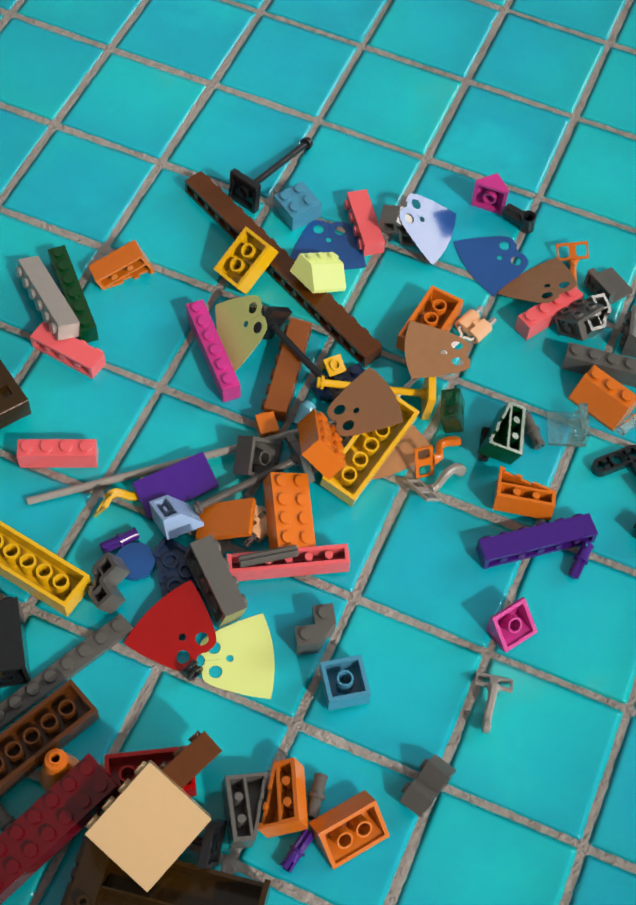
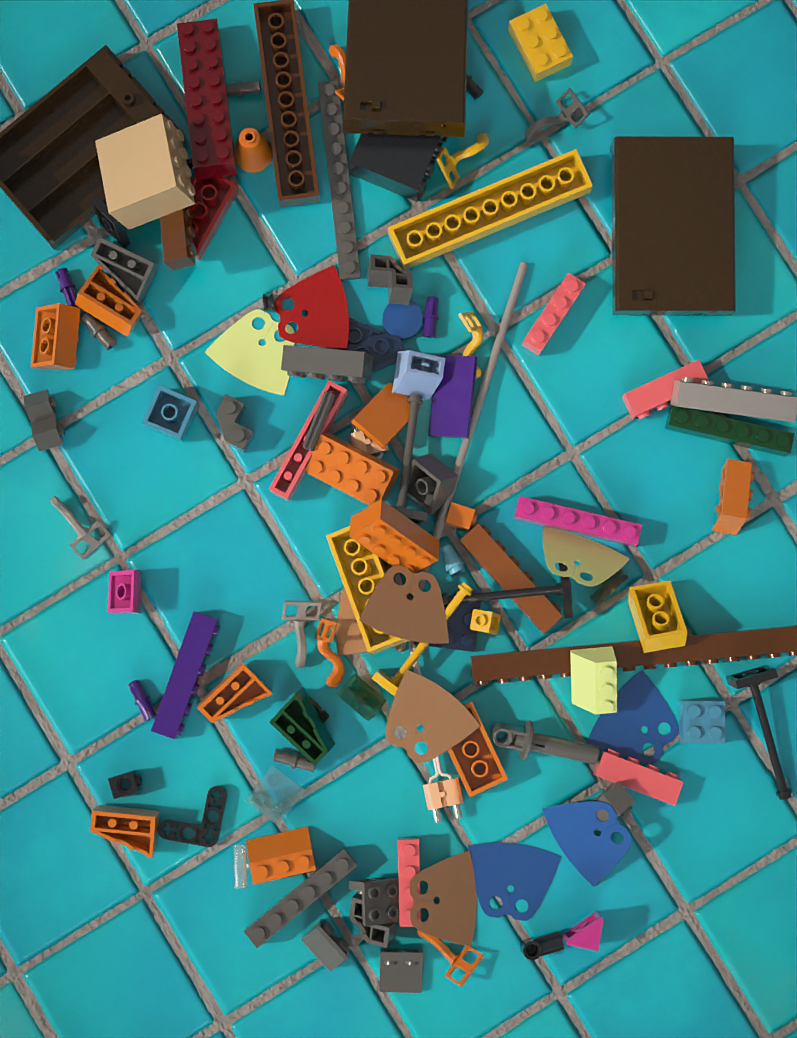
camera: 125 degrees right, 25 degrees up
(395, 292) = (526, 740): none -> dark grey piece

